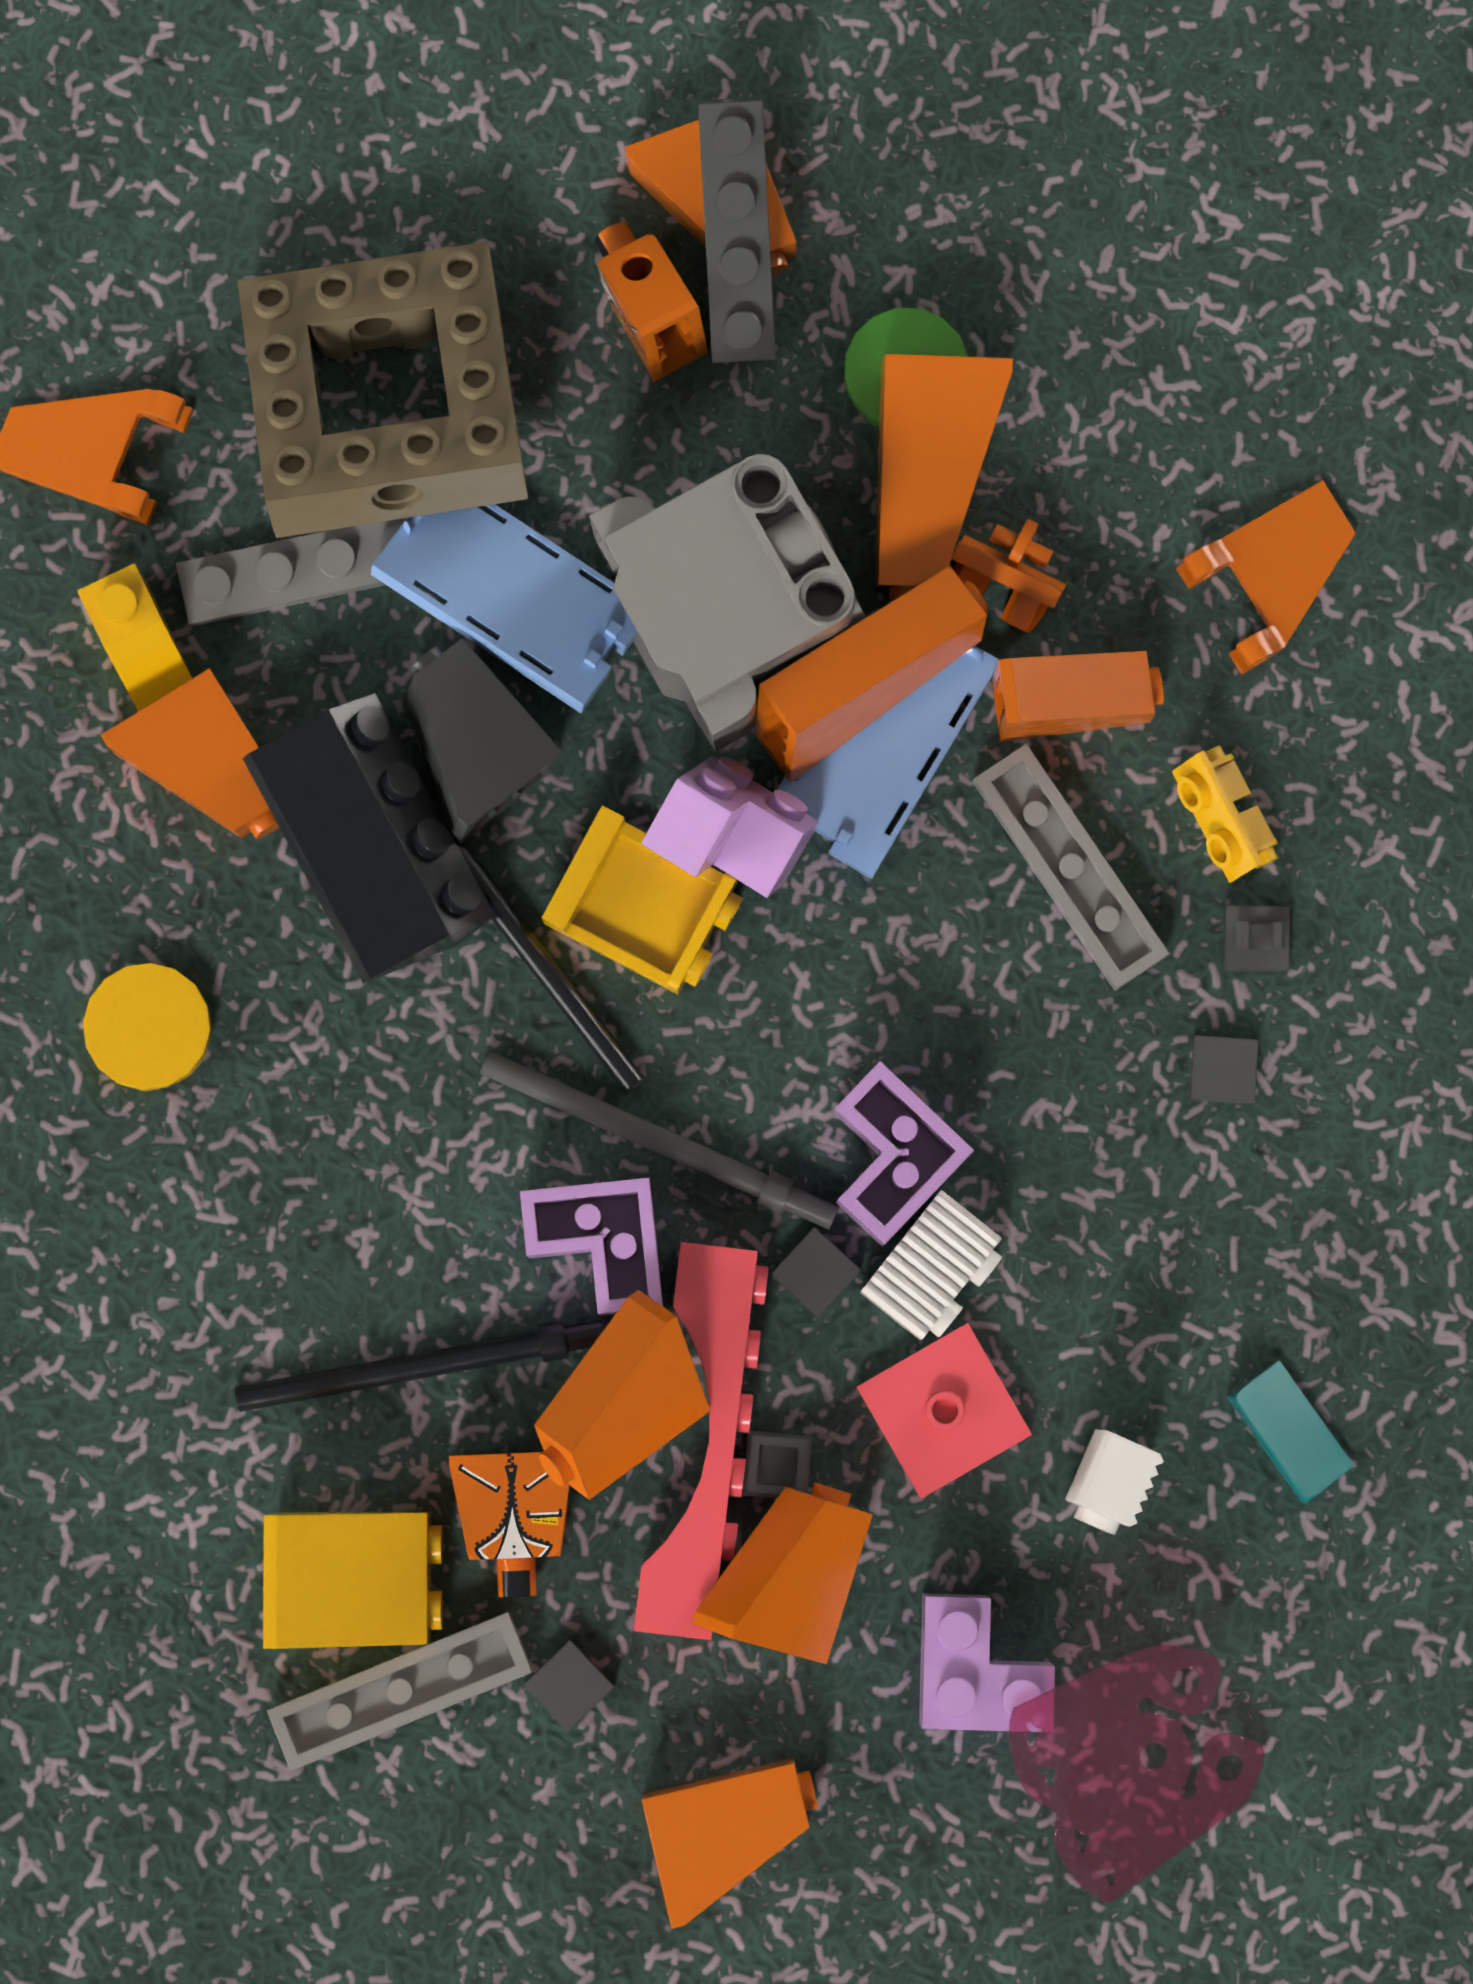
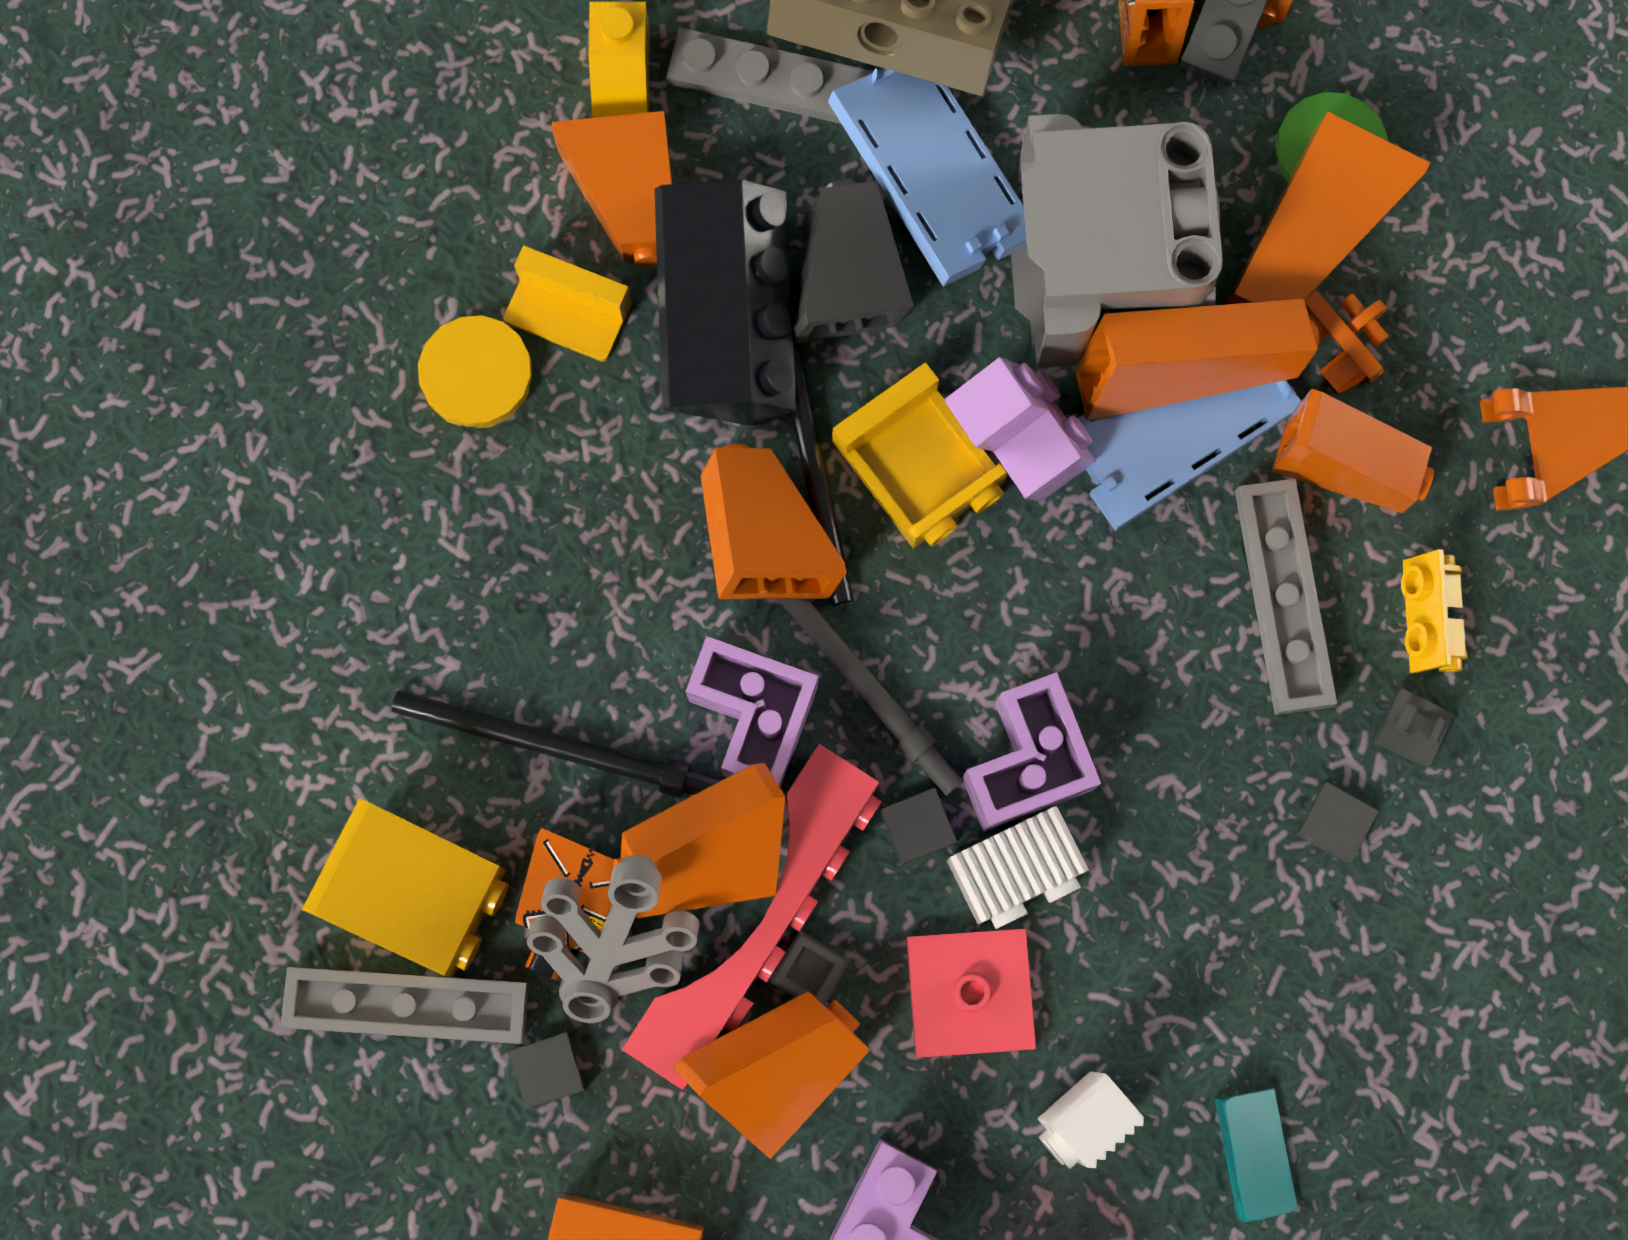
camera: 25 degrees right, 5 degrees down
(207, 915) = (567, 304): none -> yellow panel
(521, 1053) = (764, 531): none -> orange slope
(577, 1587) = (593, 991): none -> light grey plant

